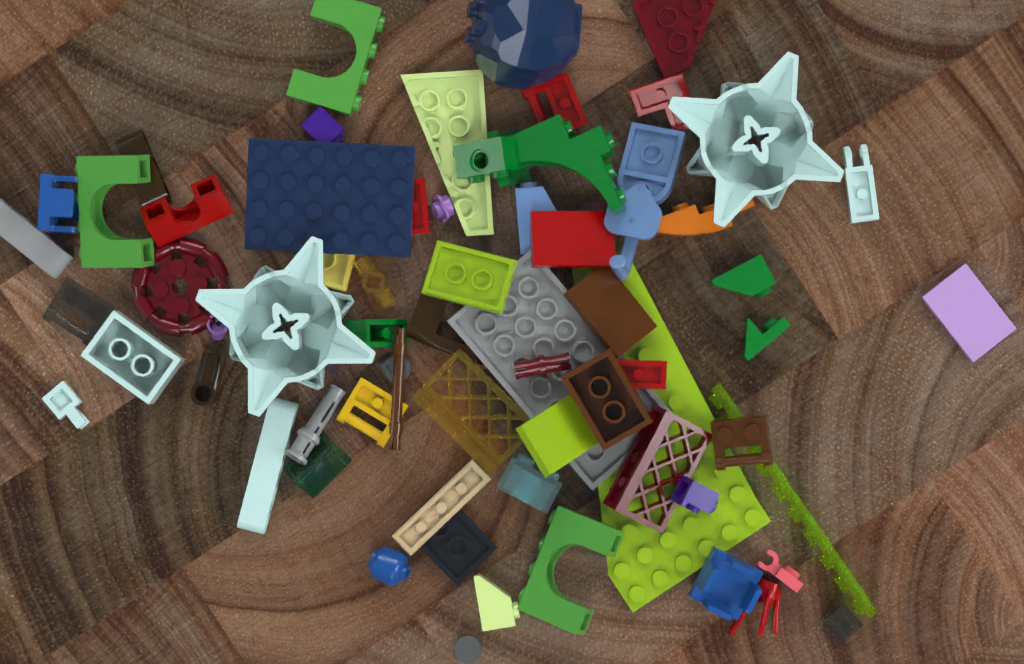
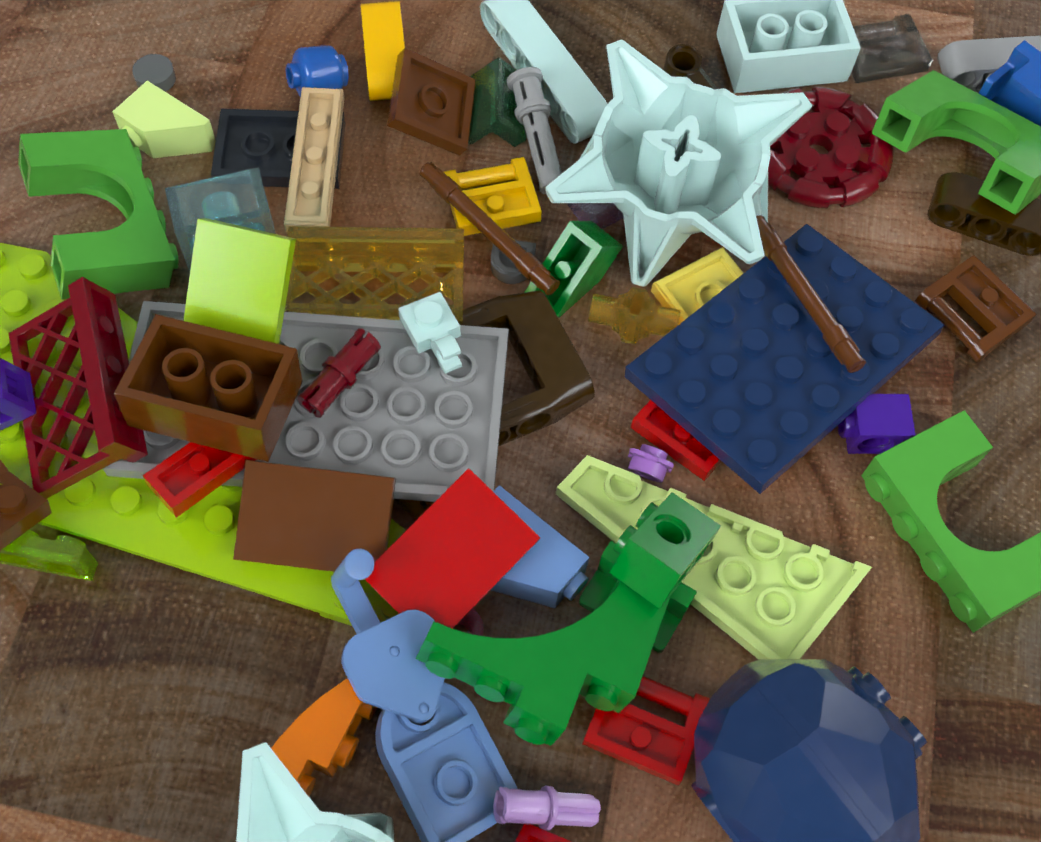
camera: 135 degrees right, 25 degrees down
(170, 222) = (897, 230): red arch -> none
(201, 135) = (984, 299): none -> reddish brown plate
(309, 177) = (833, 333): none -> reddish brown piece
(340, 551) = (382, 44): none -> yellow beam
(353, 488) = (431, 102): none -> reddish brown plate
(469, 277) = (531, 398): lime tile -> none
(481, 352) = (433, 327): none -> light aqua plate
(626, 112) = (545, 807): none -> lavender axle
(747, 279) = (161, 741): green slope -> none
(755, 341) = (69, 674): green slope -> none

